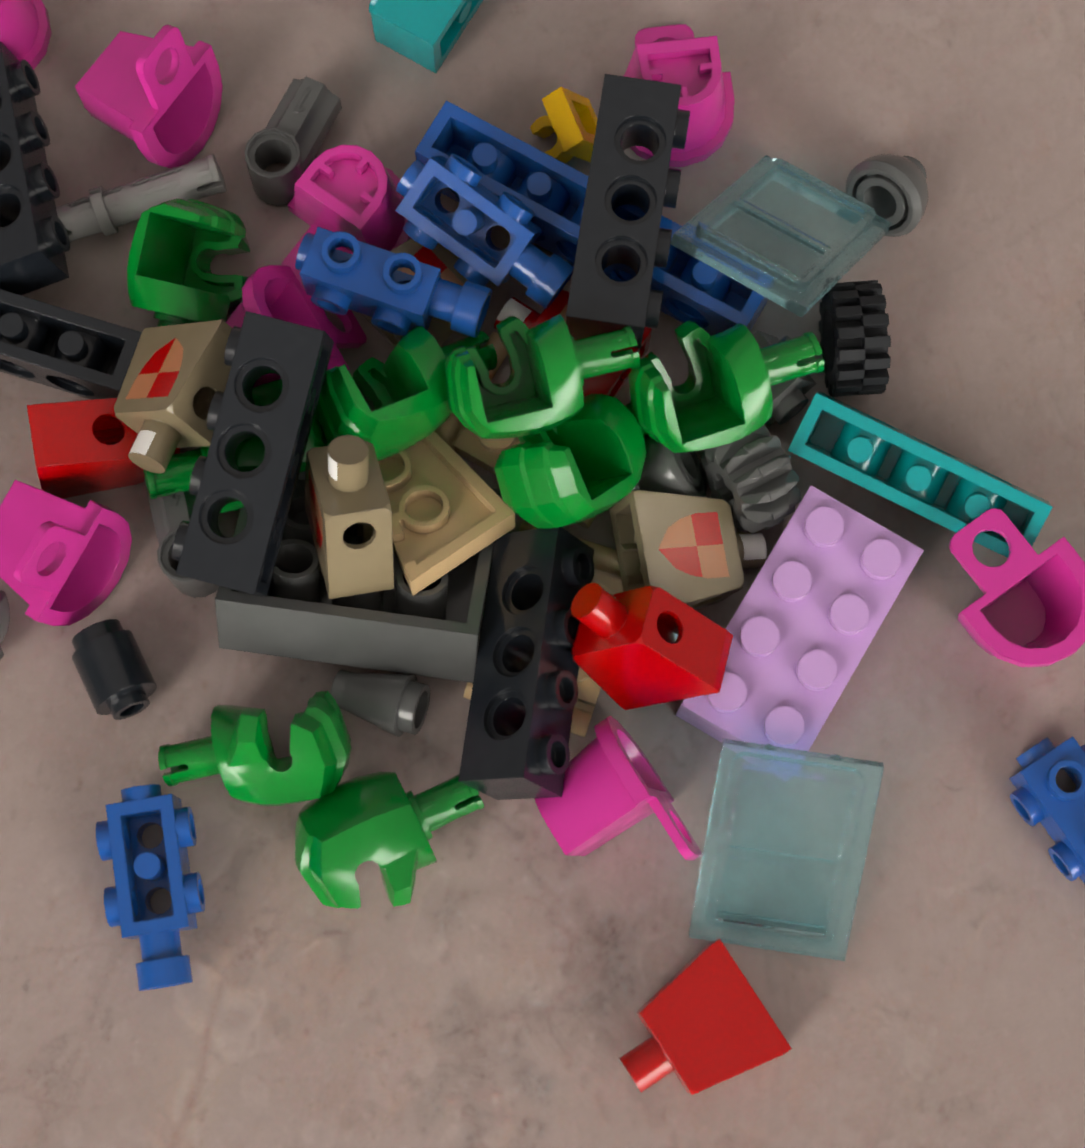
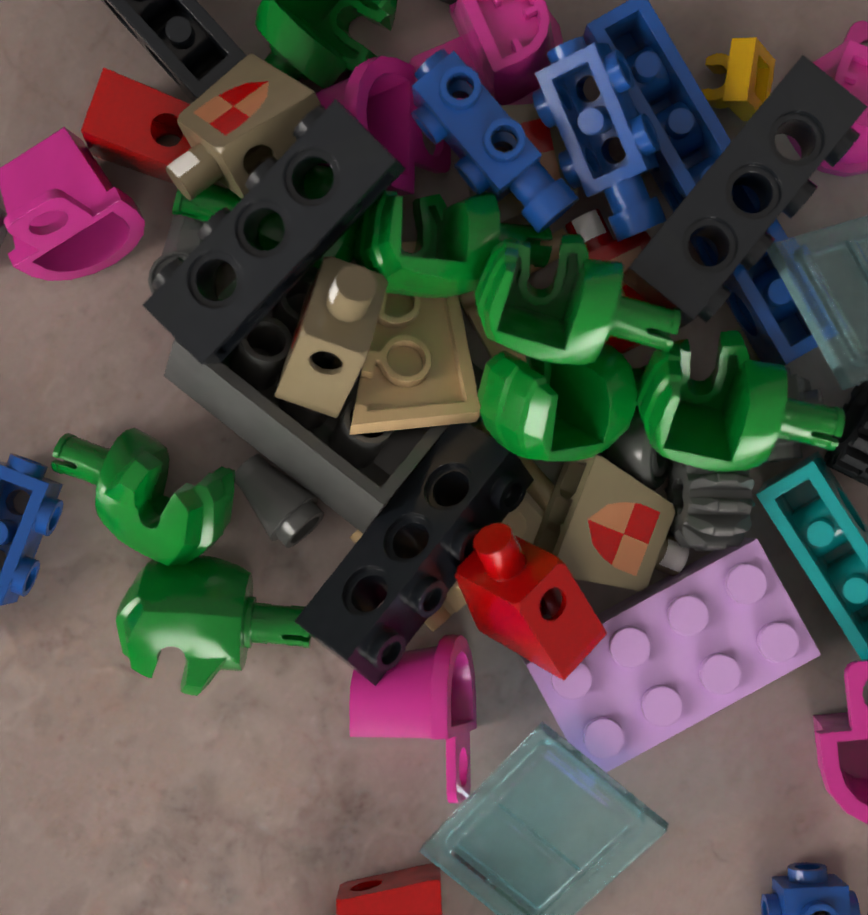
camera: 30 degrees right, 10 degrees up
(113, 669) = (64, 341): black brick -> none

